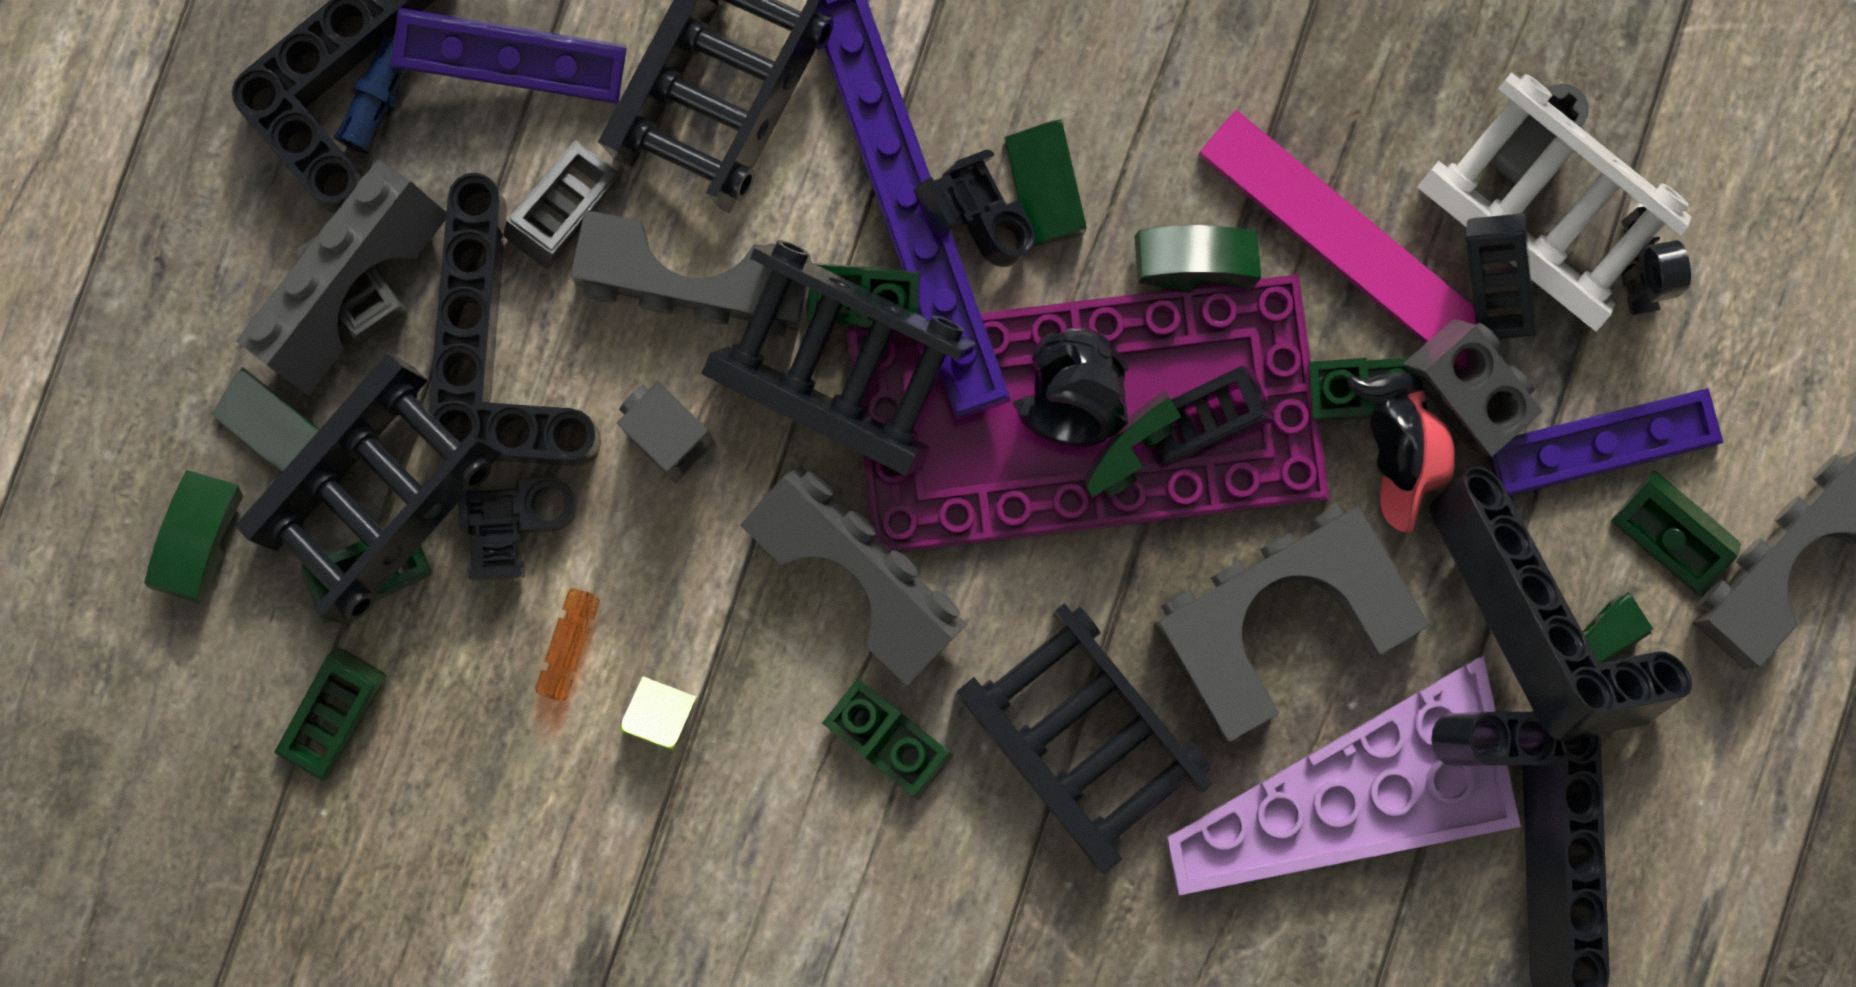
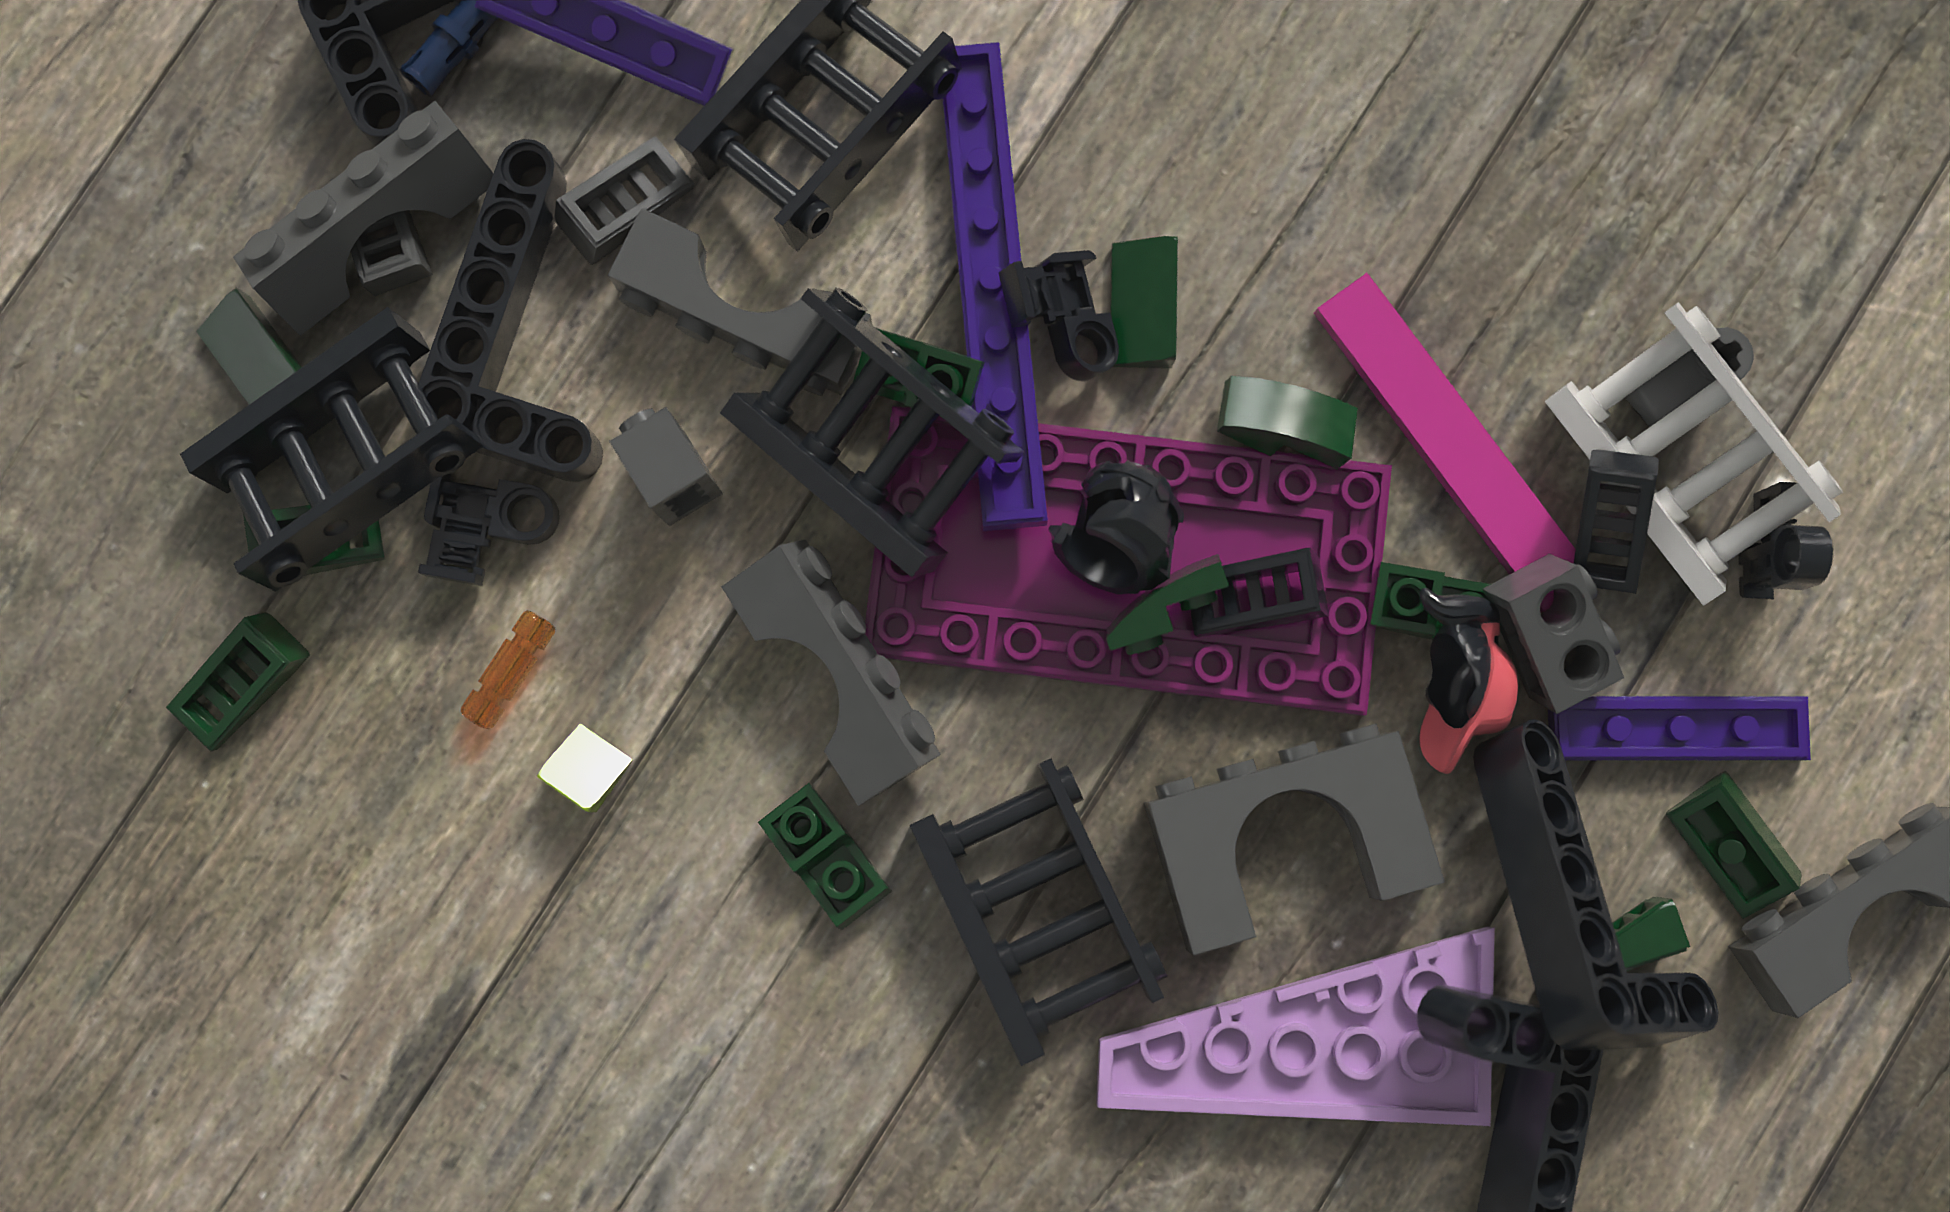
camera: 15 degrees right, 0 degrees up
(190, 536) = (131, 459): dark green slope -> none

